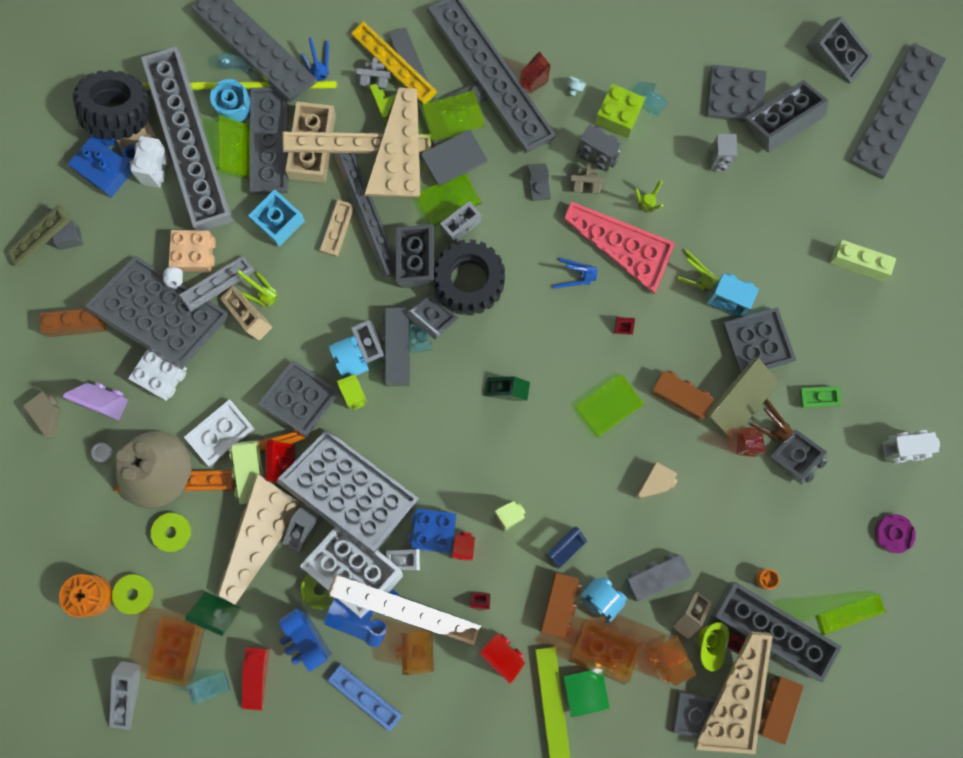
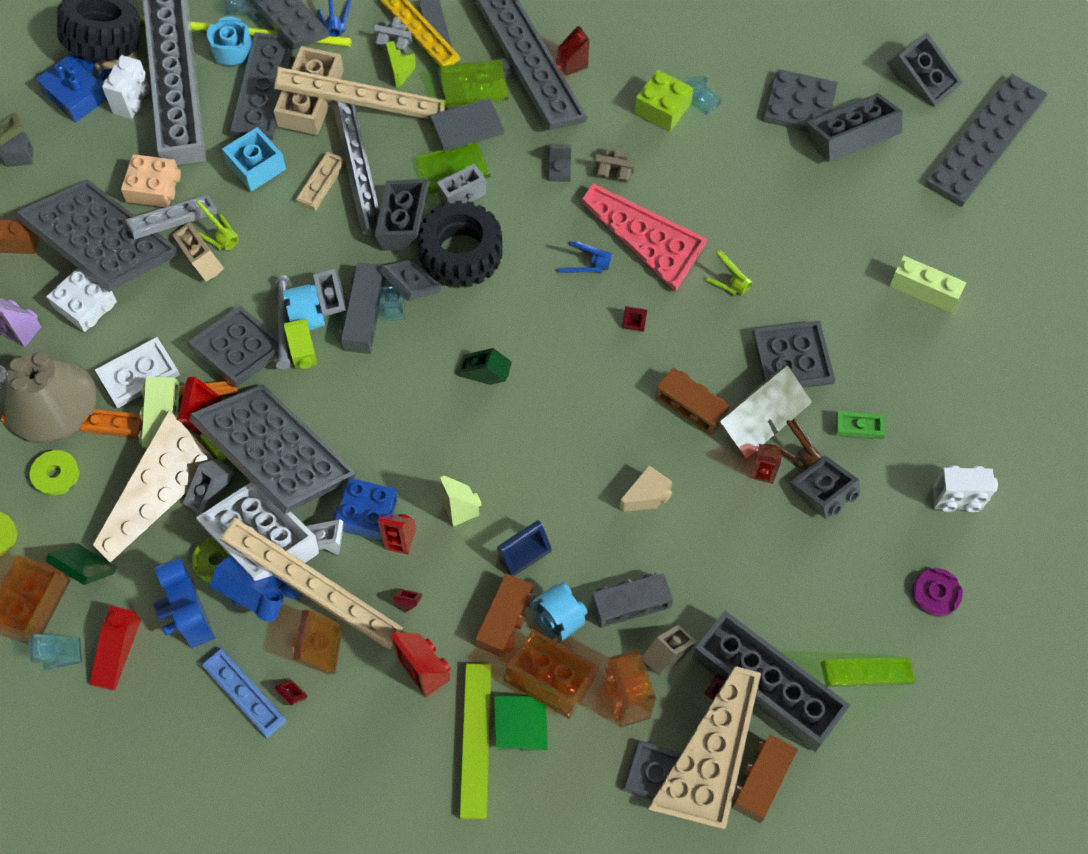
camera: 10 degrees right, 15 degrees down
(172, 277) = (123, 202): white piece -> none
(232, 147) = (220, 84): clear neon green tile -> none
(340, 409) = (282, 362): none -> light grey bar
(397, 161) = (402, 116): tan wing -> none
(402, 694) = (290, 693): none -> dark red slope
(575, 85) = (617, 71): light aqua tile -> none
(599, 148) = (632, 131): dark grey brick -> none
(610, 405) = (604, 403): clear neon green tile -> none
(648, 201) = (682, 194): lime plant -> none
(713, 645) = (689, 686): lime piece -> none
(723, 152) = (775, 151): light grey brick -> none
(733, 295) = (766, 298): medium azure brick -> none
(770, 581) = (770, 615): orange wheel -> none

